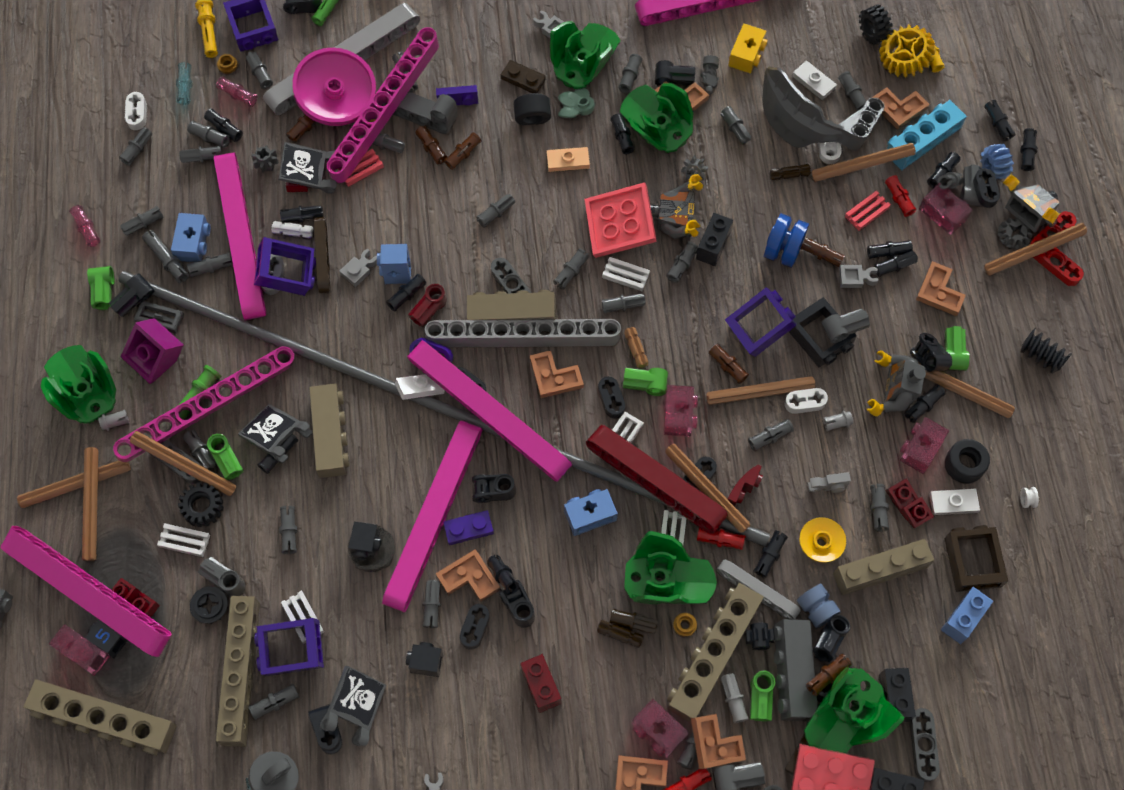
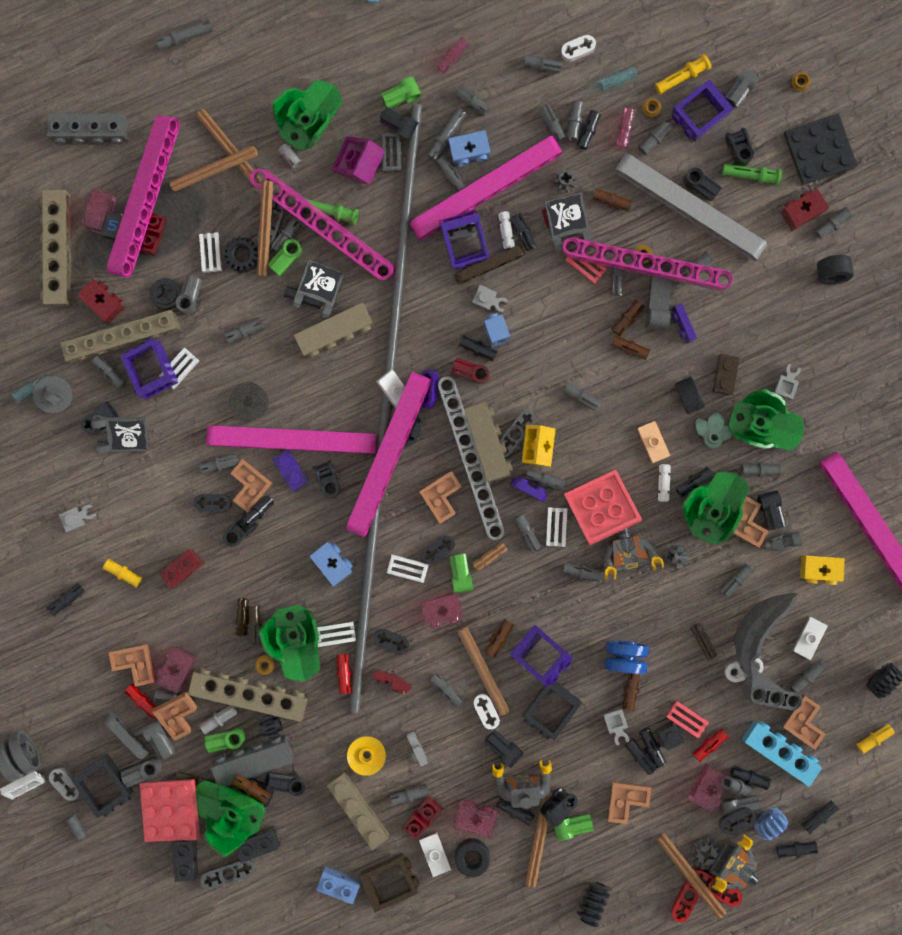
camera: 70 degrees right, 20 degrees up
(198, 682) = (93, 292): none -> dark red brick
(326, 39) = (703, 186): none -> black piece
(333, 86) = (652, 213): dark pink dish -> none
(364, 540) = (247, 395): black brick -> none
(424, 659) = (173, 474): black brick -> none
(522, 759) = (122, 573): none -> yellow pin
(533, 261) = (538, 445): none -> yellow brick
(581, 282) = (536, 492): none -> dark purple plate
(614, 161) = (664, 483): none -> white axle
(657, 479) = (372, 608): dark red beam -> none
(707, 487) = (379, 651): medium nougat axle -> none
(714, 239) = (611, 594): black brick -> none
(770, 554) = (342, 717): black pin -> none
(771, 598) = (309, 715): light grey beam -> none
(817, 604) = (311, 764): sand blue wheel -> none
(839, 420) = (475, 742): light grey pin -> none
(840, 327) = (555, 726): dark grey piece -> none
(855, 391) = (507, 751): none -> black piece
(863, 162) = (731, 705): medium nougat axle -> none
(880, 228) = (669, 735): none -> black brick
(904, 58) = (858, 710): yellow gear -> none
(1029, 497) = (456, 915): white bush -> none

